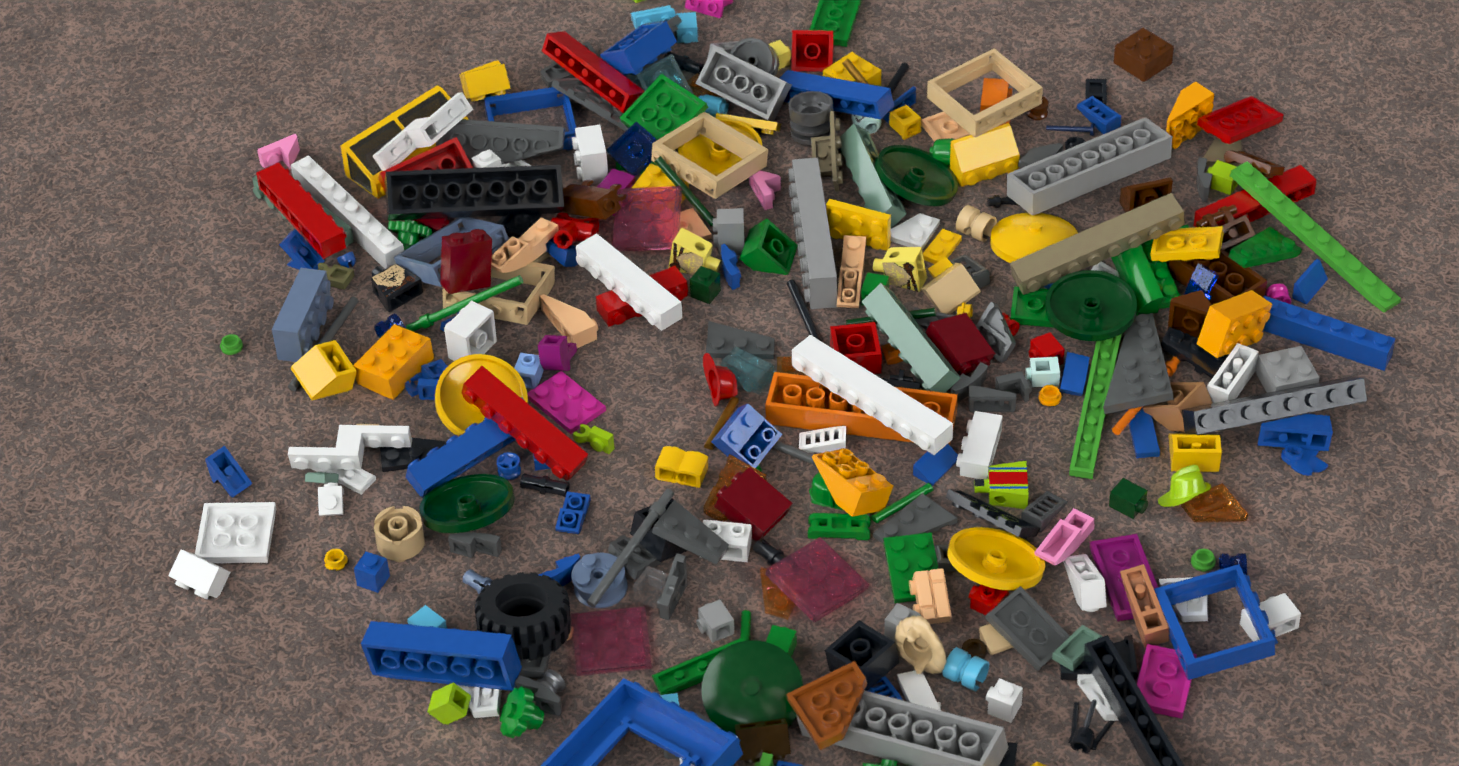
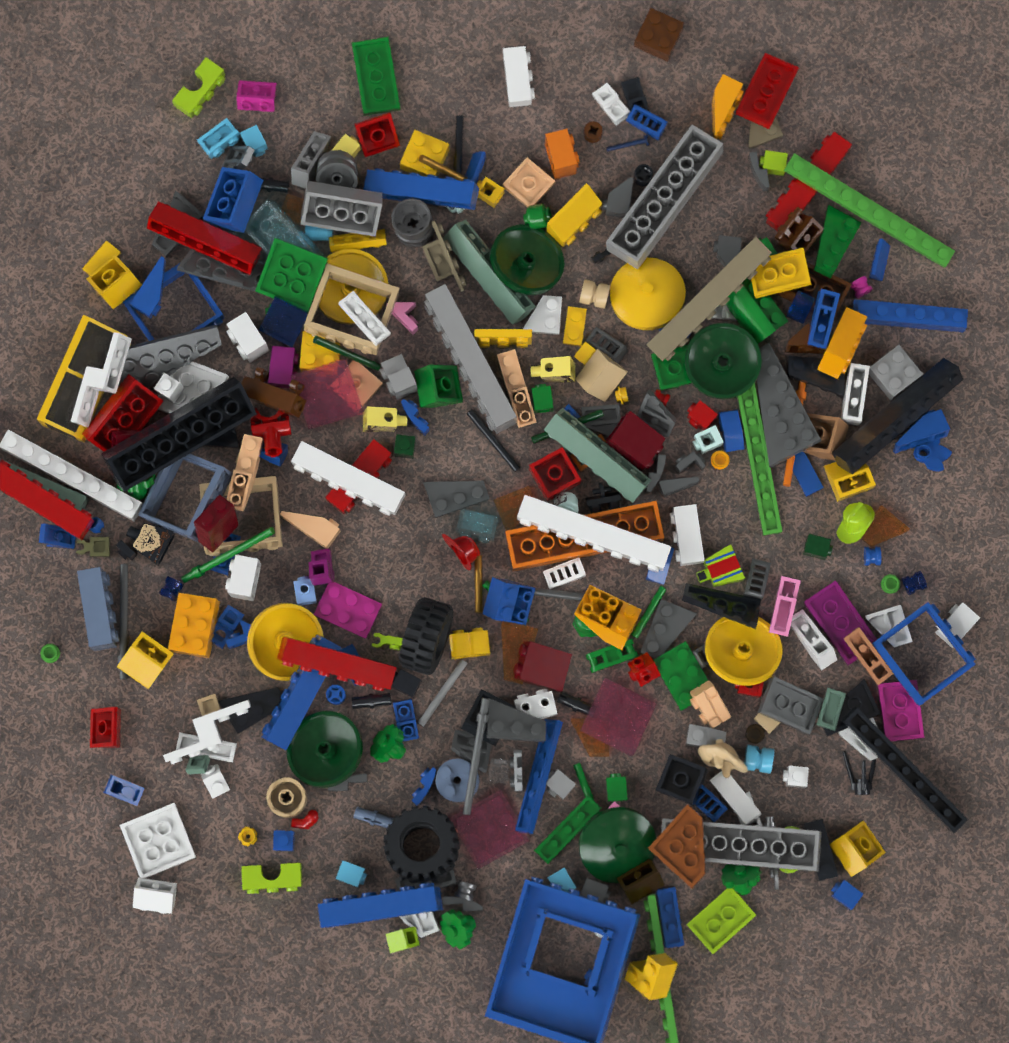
camera: 25 degrees left, 35 degrees up
(249, 419) = (105, 727): none -> red slope
(355, 609) = (254, 880): none -> lime arch
(363, 285) = (125, 551): none -> black plate
(407, 568) = (307, 822): none -> red arm
(516, 92) = (150, 294): none -> blue slope
(541, 523) = (388, 744): none -> green plant
(592, 478) = (406, 683): none -> black brick
(628, 503) = (442, 693): none -> light grey bar
(635, 426) = (426, 636): none -> black tyre
(693, 602) = (538, 778): none -> blue tile
(717, 155) = (364, 318): none -> white tile
(877, 544) = (643, 669): none -> red brick
(980, 40) = (518, 76): none -> white brick
(1028, 97) = (533, 135): tan window -> none
(1067, 94) = (611, 104): none -> white slope
(1141, 194) = (720, 212): reddish brown slope -> none
(1191, 526) = (872, 556): none -> blue wheel
(1222, 283) = (823, 318): none -> blue slope
(1266, 167) = (797, 145): reddish brown plate -> none

